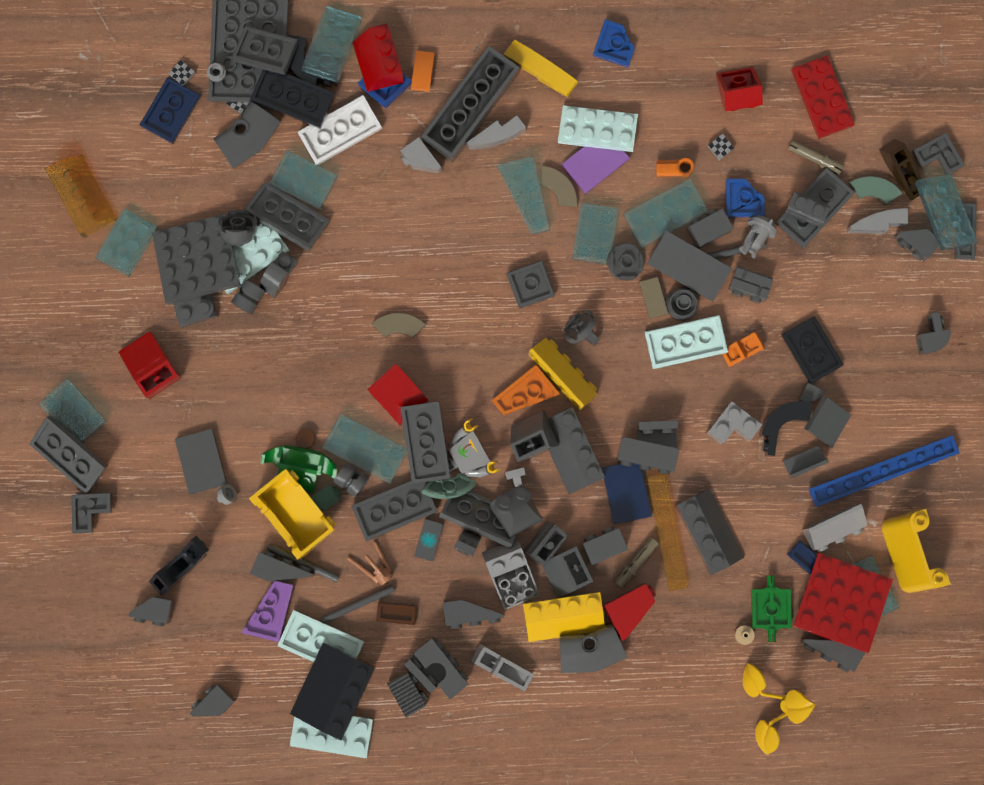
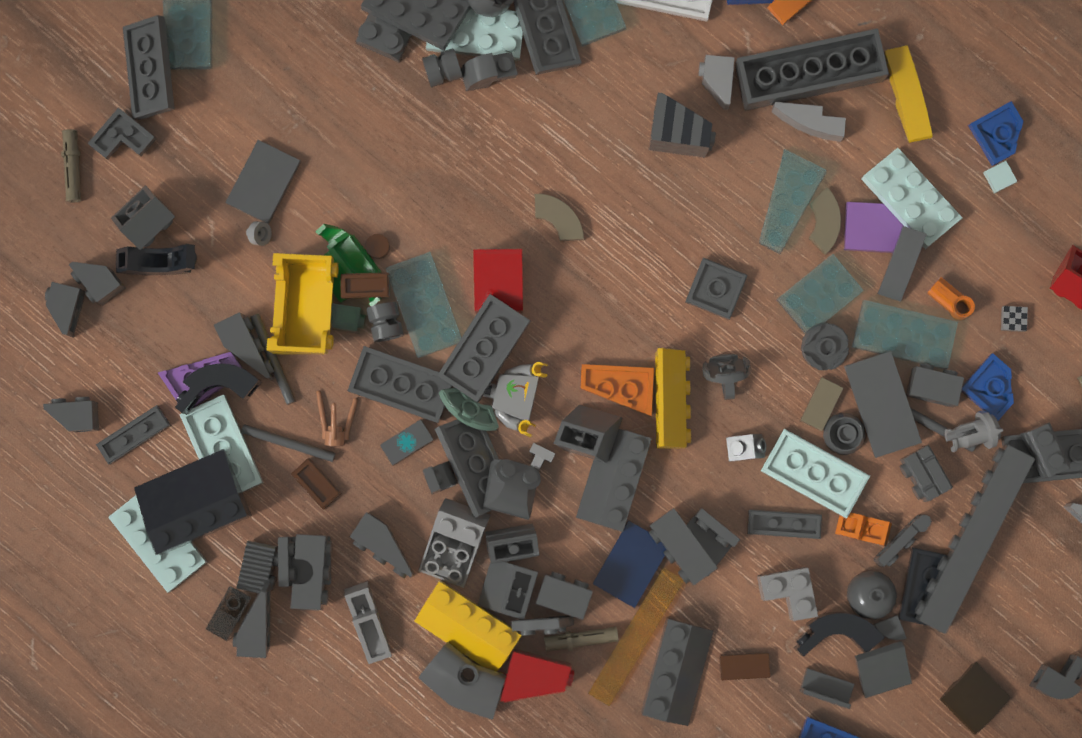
camera: 45 degrees right, 0 degrees up
(67, 549) = (71, 165): none -> dark tan pin
(147, 643) = (65, 306): none -> dark grey slope
(148, 547) = (143, 218): none -> dark grey brick
(149, 365) = (294, 52): red slope -> none
(259, 683) = (133, 434): none -> dark grey tile
(279, 602) = (214, 376): none -> black arch
(320, 468) = (365, 285): none -> reddish brown tile
(415, 736) = (229, 614): none -> clear smoke slope
(424, 208) = (679, 129): none -> dark grey slope
(439, 733) = (254, 631): none -> dark grey slope
(611, 570) = (550, 625): none -> dark grey plate
(626, 172) = (901, 263): none -> dark grey slope
(632, 363) = (746, 447): none -> bracket
(638, 70) = (1000, 177): none -> light aqua tile
(694, 388) = (784, 524): none -> dark grey tile
(746, 492) = (744, 666): none -> reddish brown tile
(771, 336) = (904, 538): none -> dark grey hinge
(782, 384) = (871, 594): none -> dark grey cylinder
(812, 298) = (974, 538): none -> dark grey brick
(895, 390) = (975, 698): none -> dark brown slope

